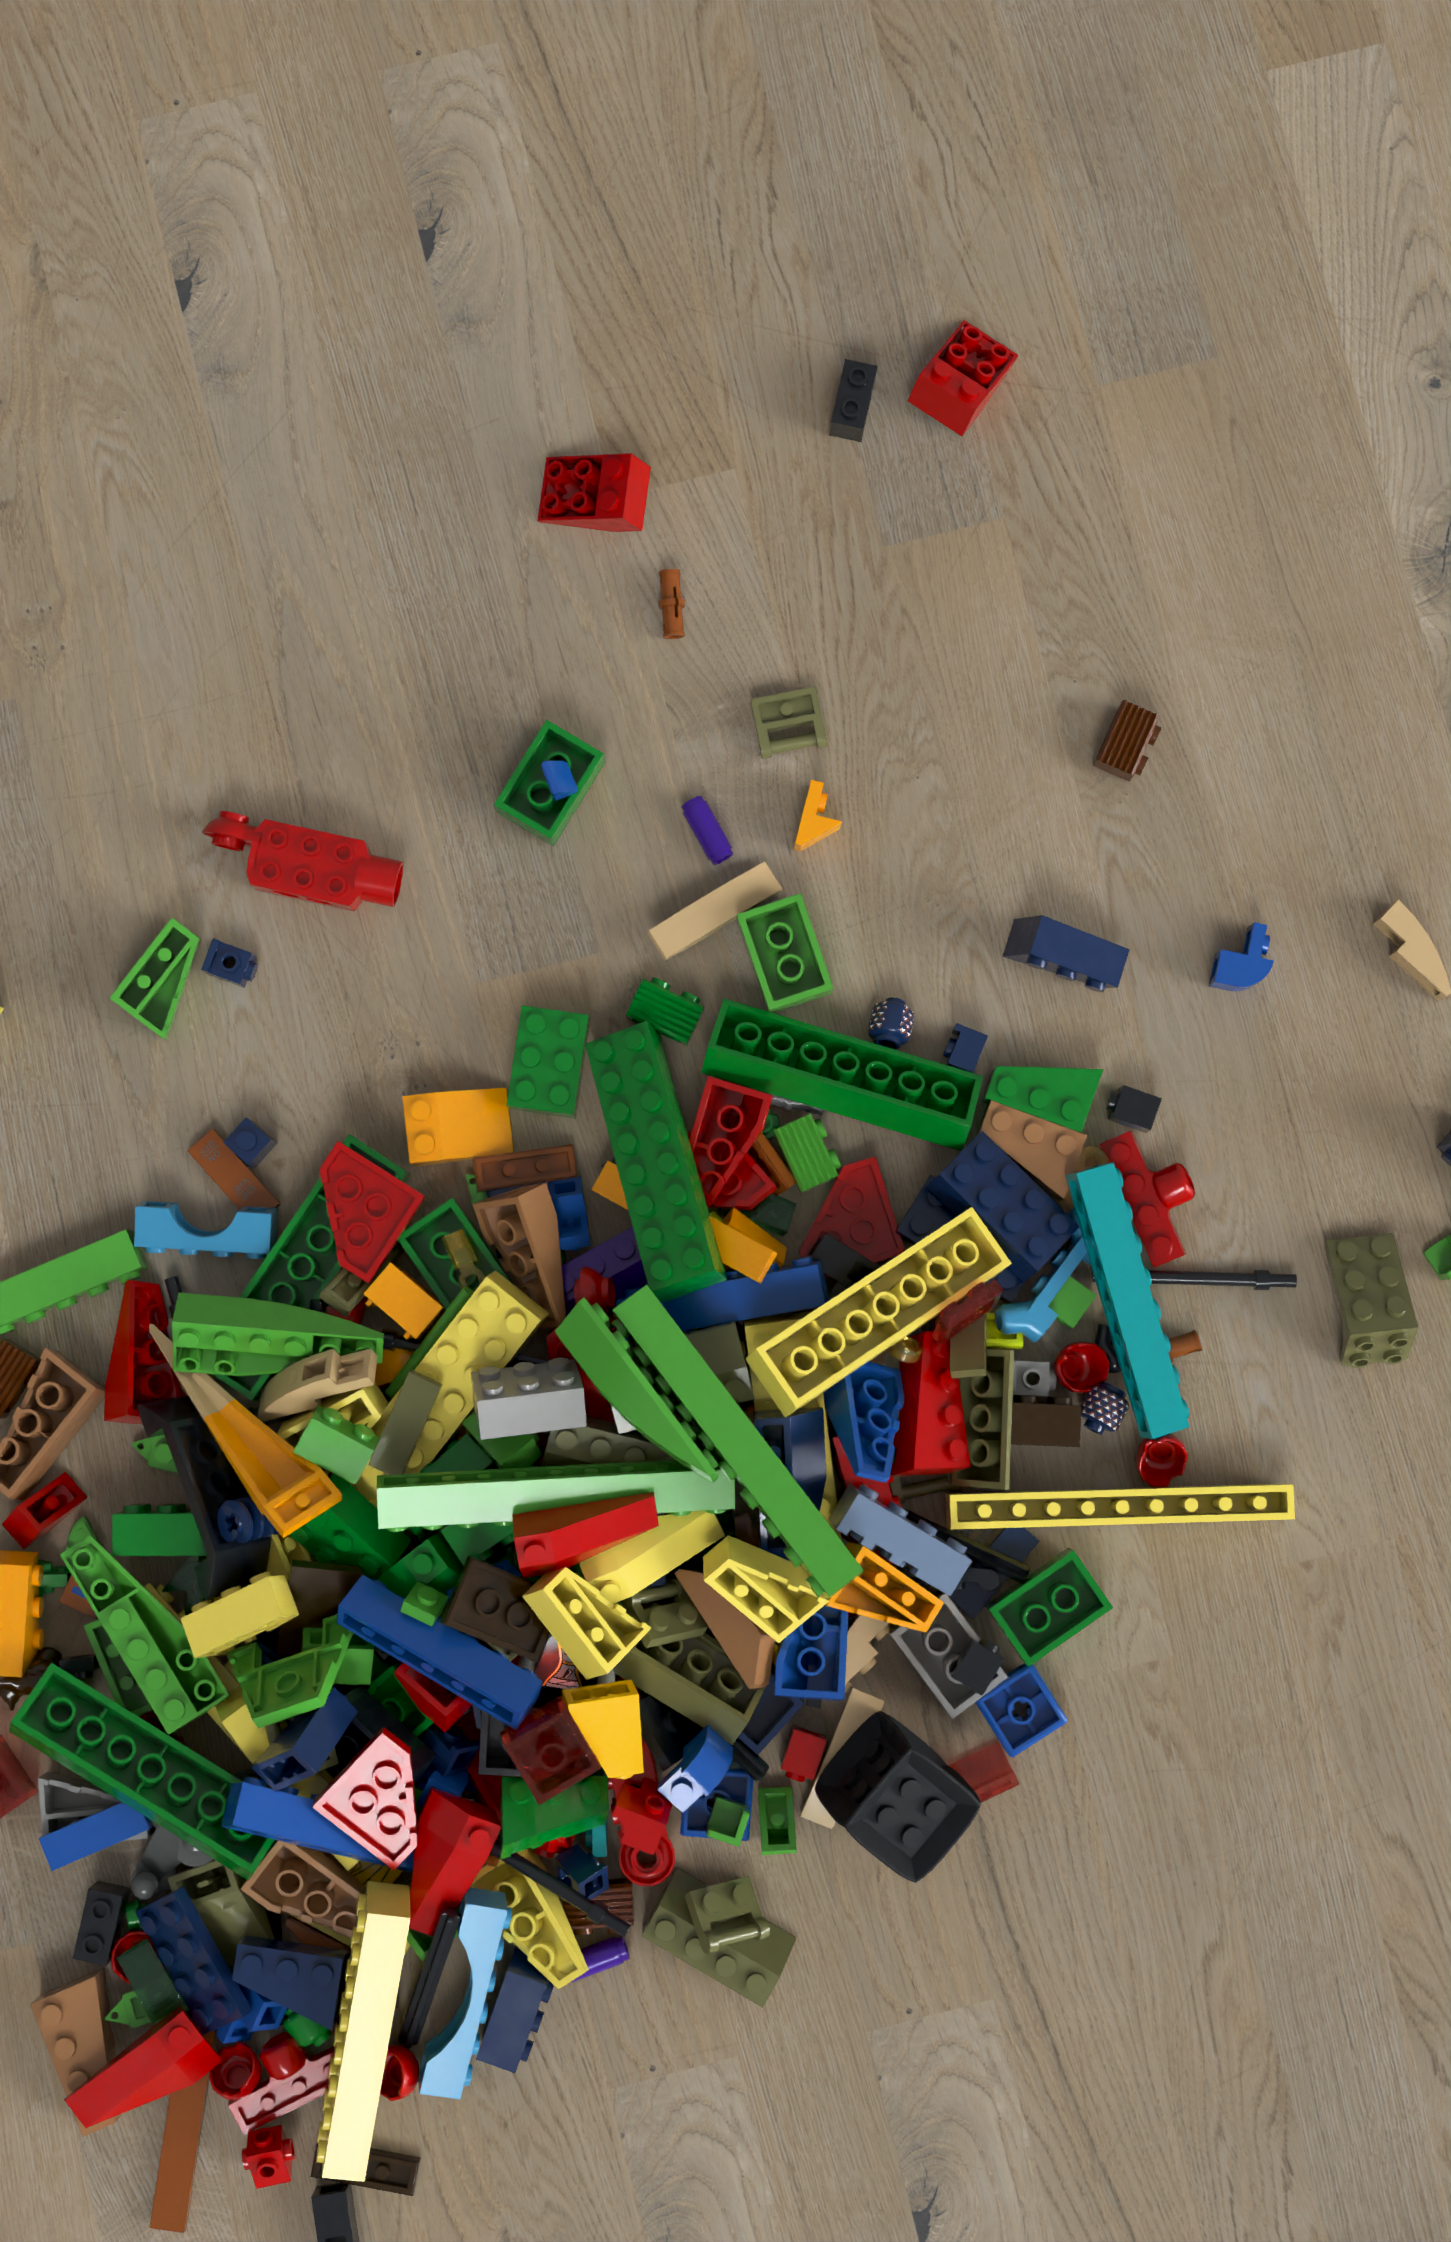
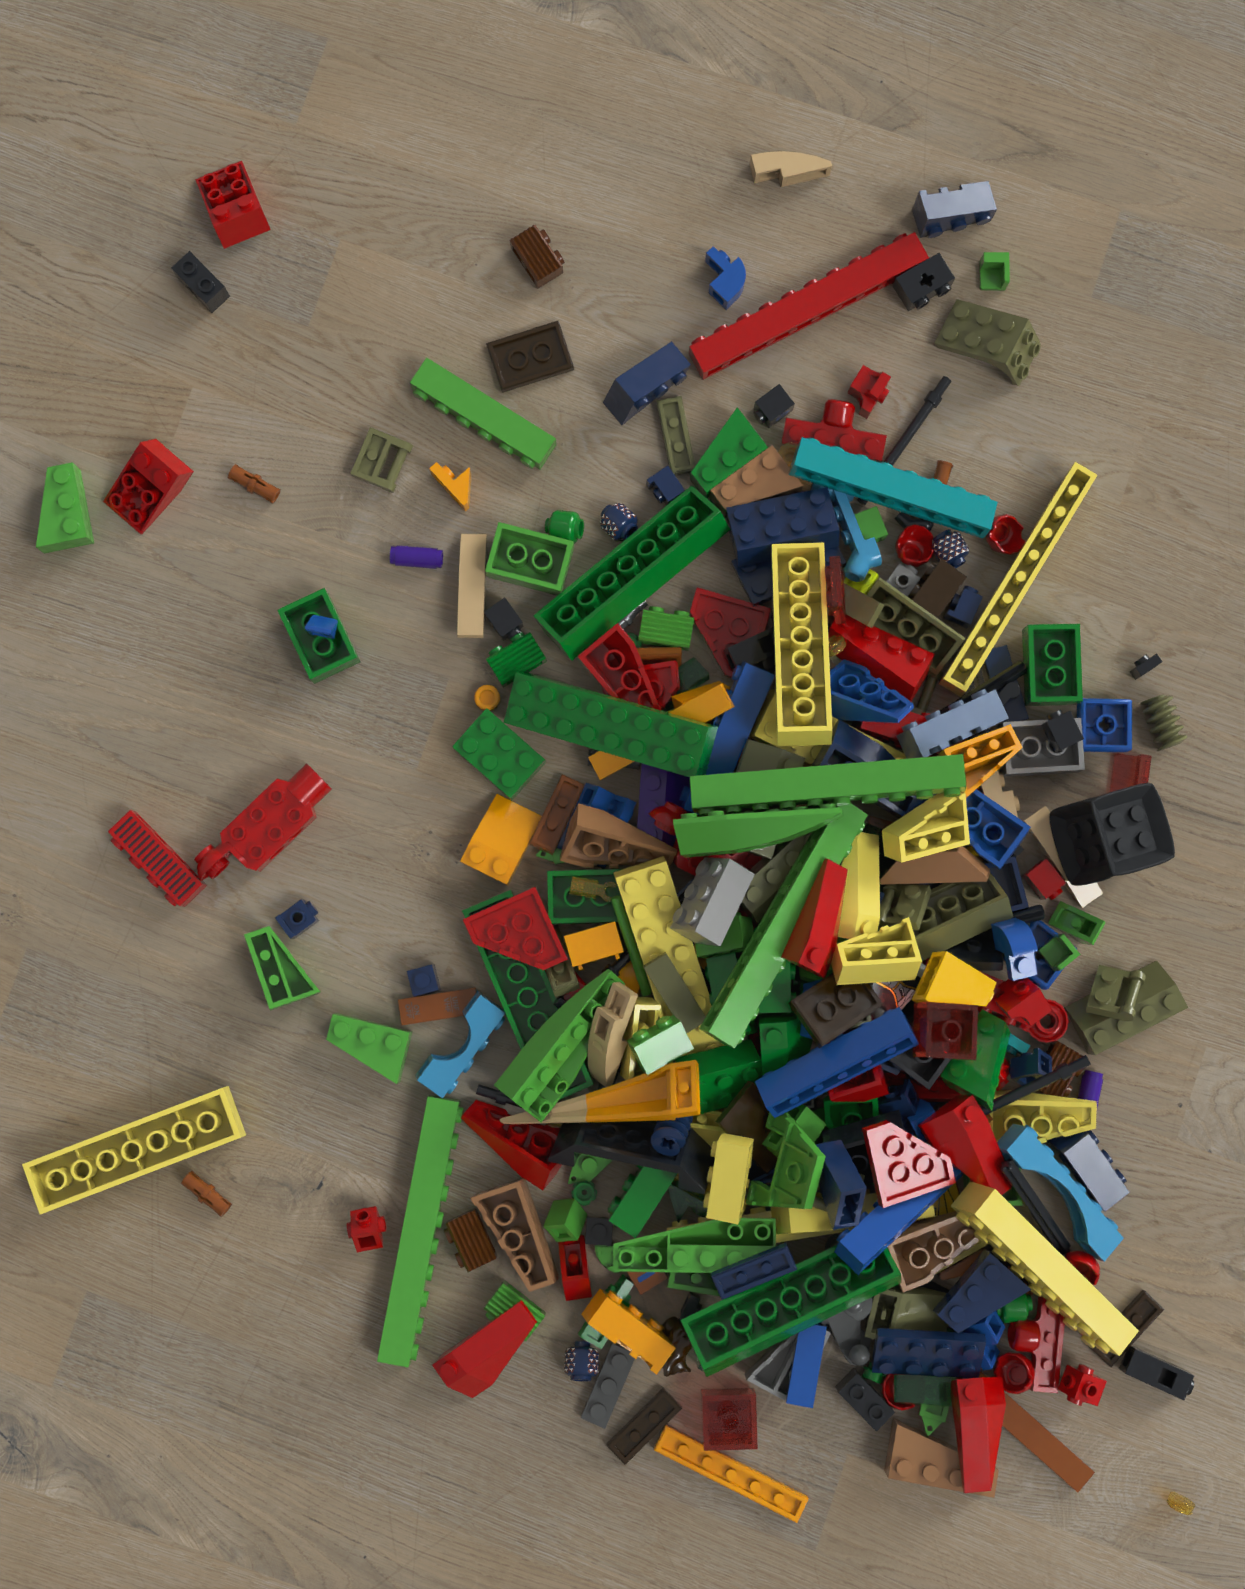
camera: 55 degrees left, 0 degrees up
(89, 1466) = (565, 1220): none -> bright green panel
(99, 1510) = (598, 1231): none -> black plate
(124, 1467) = (588, 1197): none -> green plate
(145, 1132) = (372, 1043): none -> bright green wedge
(155, 1708) = (753, 1271): none -> dark blue tile
(197, 770) = (156, 858): none -> red brick
(424, 1603) = (800, 1052): bright green plate -> none
(507, 423) = (64, 511): none -> bright green wedge
(604, 1008) = (487, 697): none -> light orange tile
(700, 970) = (504, 619): none -> black brick
(847, 968) = (565, 525): none -> green head
(912, 798) = (483, 414): none -> bright green brick
(1011, 807) = (530, 356): none -> dark brown tile
(1030, 1023) = (676, 435): none -> olive tile
(1050, 1466) = (964, 607): none -> dark blue brick
(1068, 1774) = (1164, 721): none -> olive piece
(1118, 1711) = (1144, 665): none -> black plate
(1224, 1202) = (869, 389): none -> red brick
(1274, 1073) = (806, 306): none -> red brick
(1405, 1184) = (930, 271): none -> black brick

